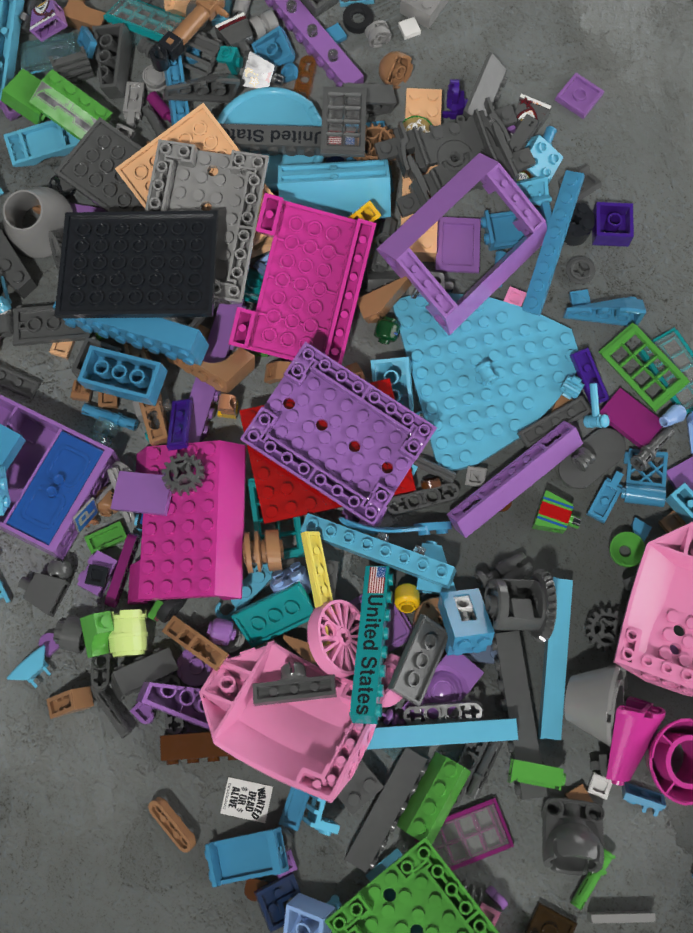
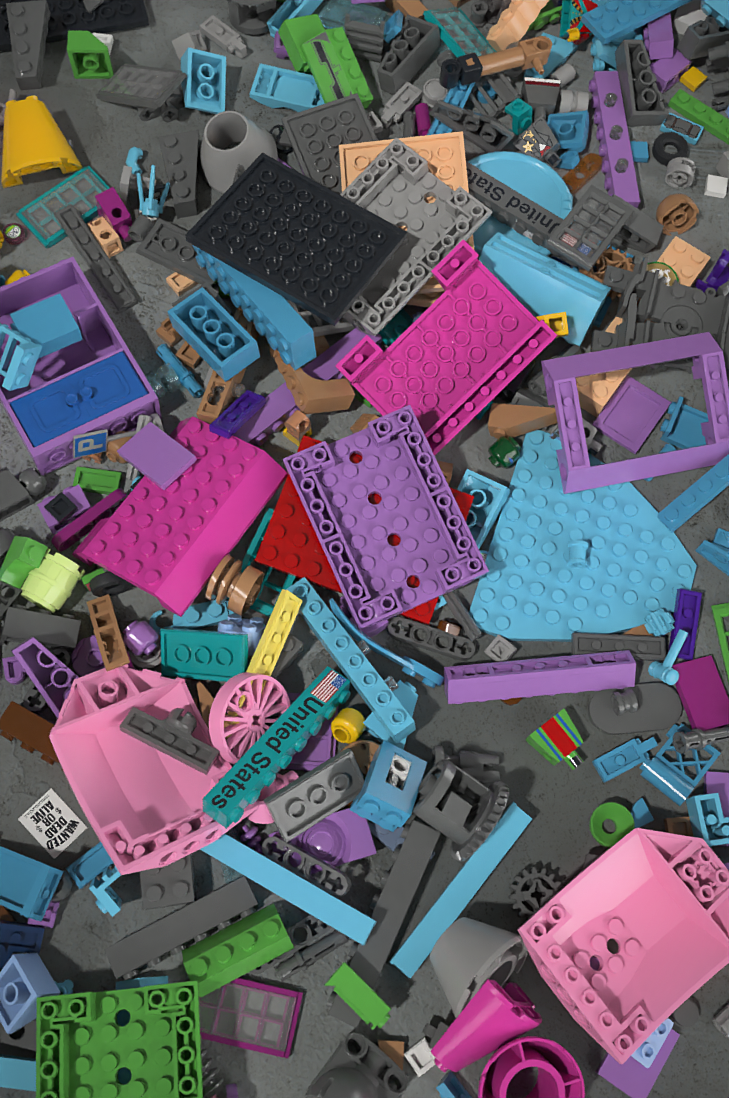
camera: 25 degrees right, 5 degrees down
(184, 467) = (206, 457): dark grey gear -> none
(515, 296) = (657, 498): bright pink tile -> none

